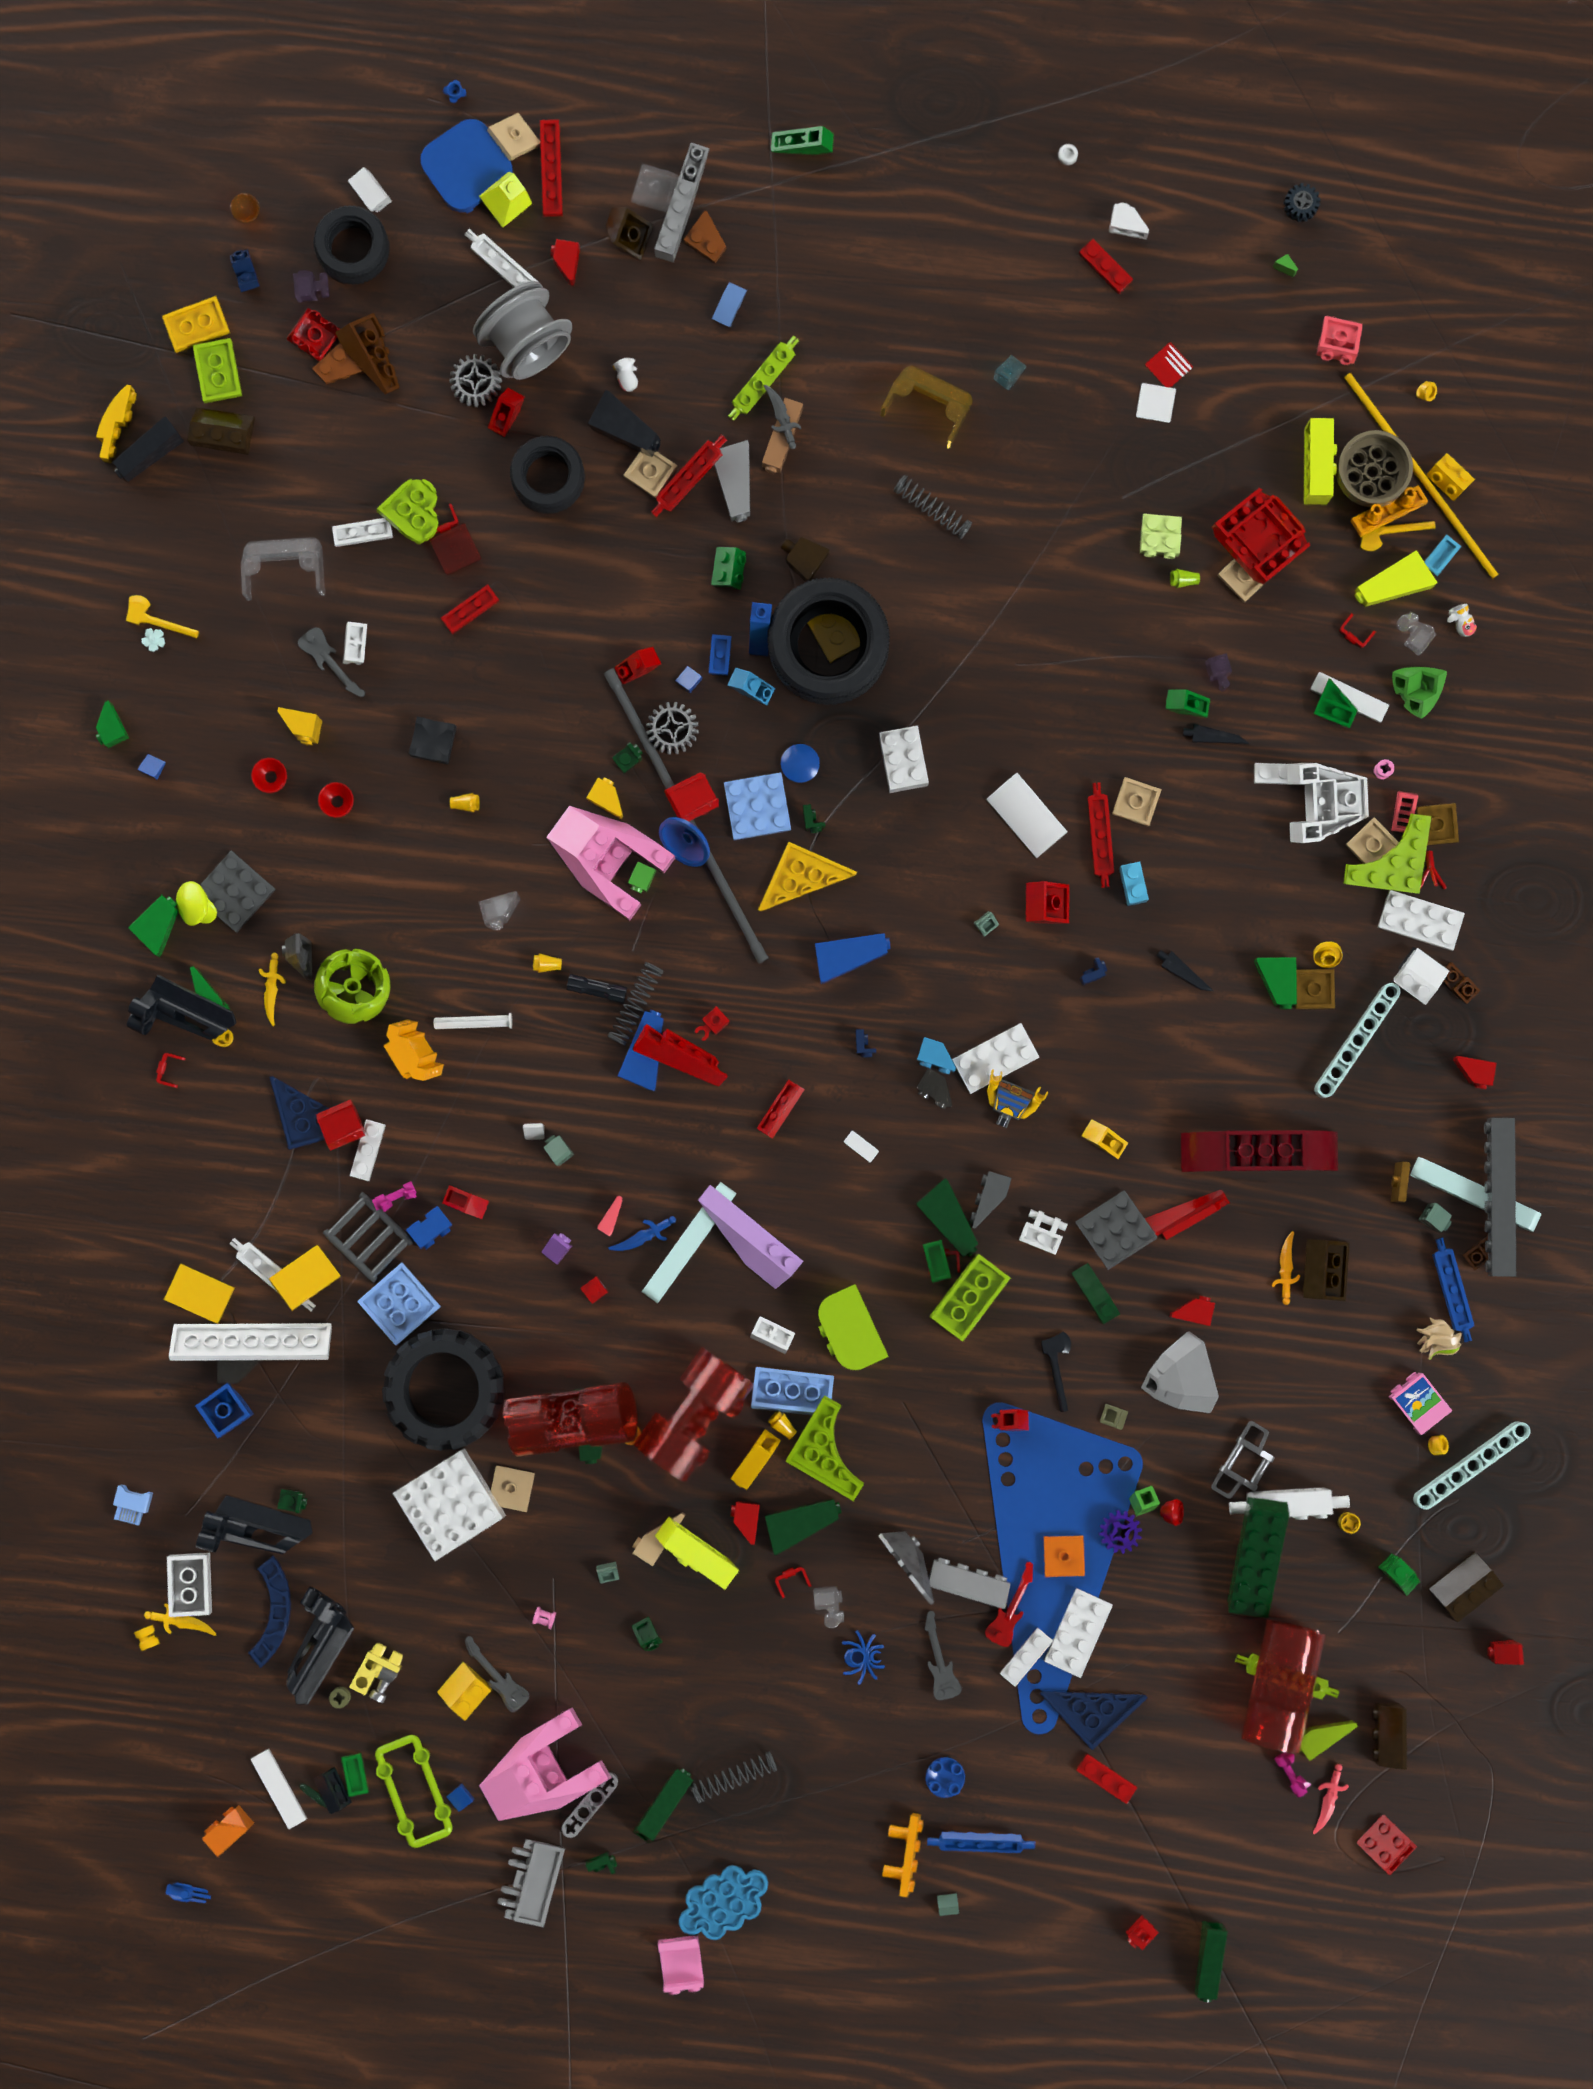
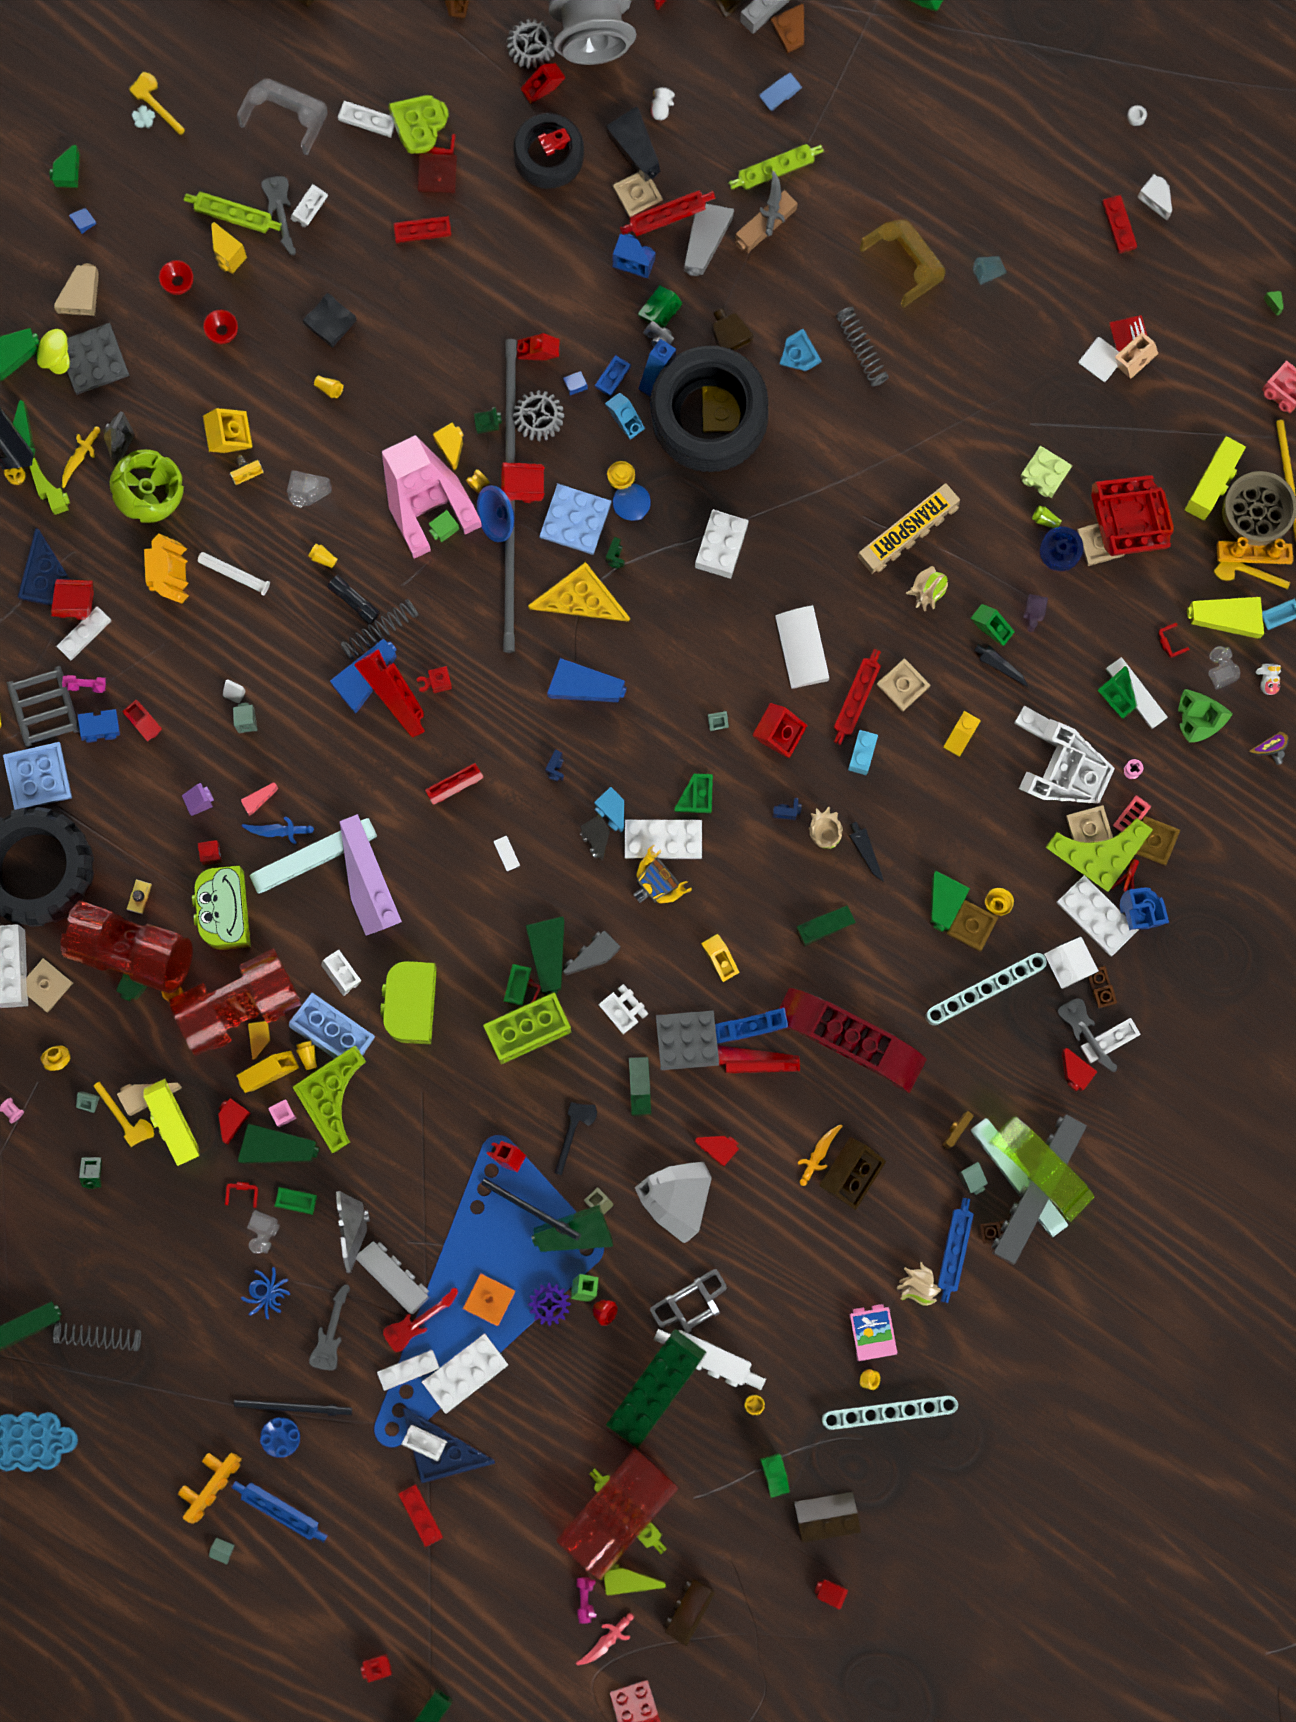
camera: 25 degrees right, 5 degrees down
(187, 836) = (79, 292): none -> tan slope
(273, 1039) = (57, 499): none -> lime slope
(286, 686) = (232, 212): none -> lime plate
(395, 893) = (227, 430): none -> yellow slope
(432, 921) = (246, 471): none -> yellow piece
(547, 468) = (550, 142): none -> red plate
(551, 1363) = (139, 896): none -> light yellow piece
(558, 1549) = (55, 1058): none -> yellow plate
(634, 1335) = (222, 908): none -> brick
(650, 819) = (477, 481): none -> yellow wheel
(666, 1580) = (133, 1135): none -> yellow piece
(679, 533) = (632, 257): none -> blue slope
(730, 1432) = (259, 1037): none -> yellow tile
(744, 595) = (656, 333): none -> light grey plate
(777, 743) = (621, 475): none -> yellow plate
(789, 1490) = (282, 1113): none -> bright pink panel
(843, 1560) = (296, 1201): none -> green tile
(879, 542) = (799, 352): none -> dark azure plate
(978, 1728) = (331, 1410): none -> black bar
(1004, 1002) = (697, 795): none -> green wing
(1065, 654) = (909, 528): none -> brick
(1077, 1714) = (424, 1442): none -> white hinge
(1097, 1459) = (561, 1227): none -> black bar
(1107, 1456) = (588, 1223): none -> dark green slope
(1113, 700) = (929, 587): none -> tan hair
(1138, 972) = (825, 829): none -> tan hair
(1166, 1186) = (751, 1026): none -> blue slope
(1183, 1059) = (825, 925): none -> dark green slope
(1187, 383) = (1136, 355): none -> light nougat brick
(1212, 611) = (1055, 557): none -> clear blue wheel
(1213, 818) = (961, 733): none -> yellow slope
(1449, 1021) = (1076, 1016): none -> dark grey piece
(1460, 893) = (1143, 909): none -> blue brick
(1491, 1027) = (1112, 1039): none -> white plate
(1493, 1176) = (1043, 1167): none -> clear neon green windscreen
(1498, 681) = (1273, 746): none -> shield

